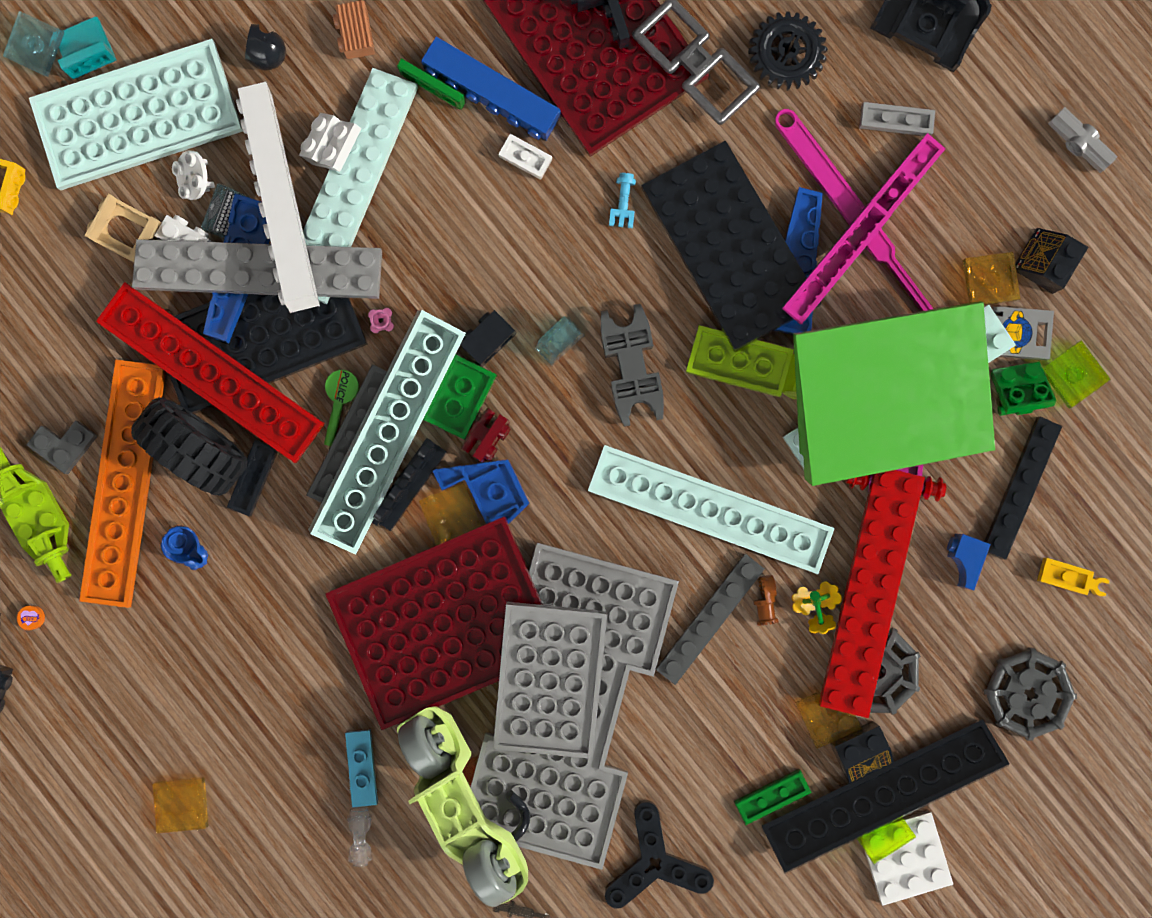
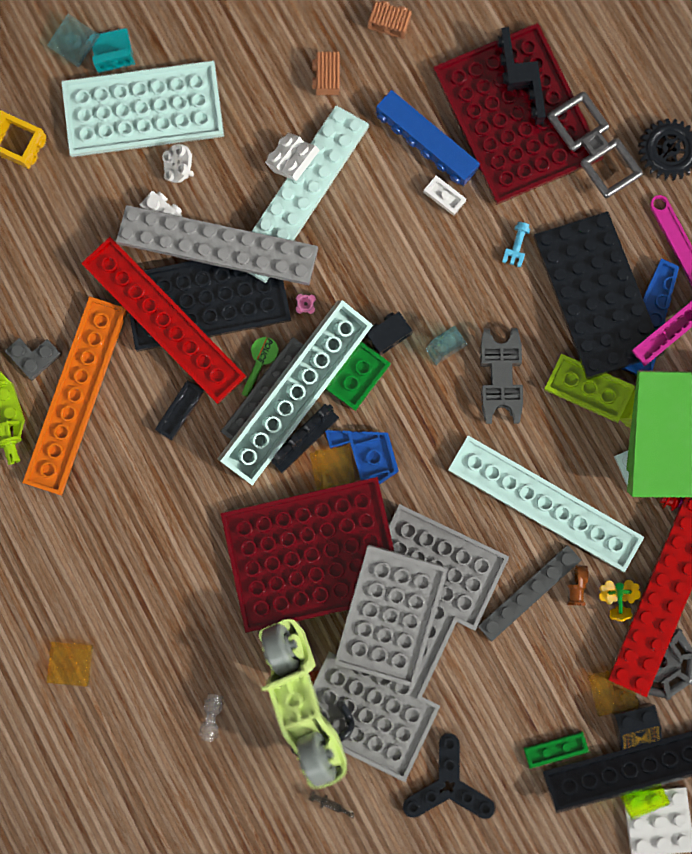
camera: 15 degrees right, 5 degrees down
(110, 208) = (107, 178): tan panel -> none
(183, 546) = (114, 454): blue hair -> none
(189, 446) = (138, 373): black tyre -> none
(219, 210) = (196, 196): slope -> none
(244, 227) = (215, 208): blue wing -> none
(263, 49) = (254, 76): black helmet -> none
(278, 198) = (244, 193): white brick -> none
(361, 768) = (222, 661): medium azure plate -> none
(431, 84) = (380, 126): green tile -> none
(488, 437) = (374, 411): dark red plate -> none

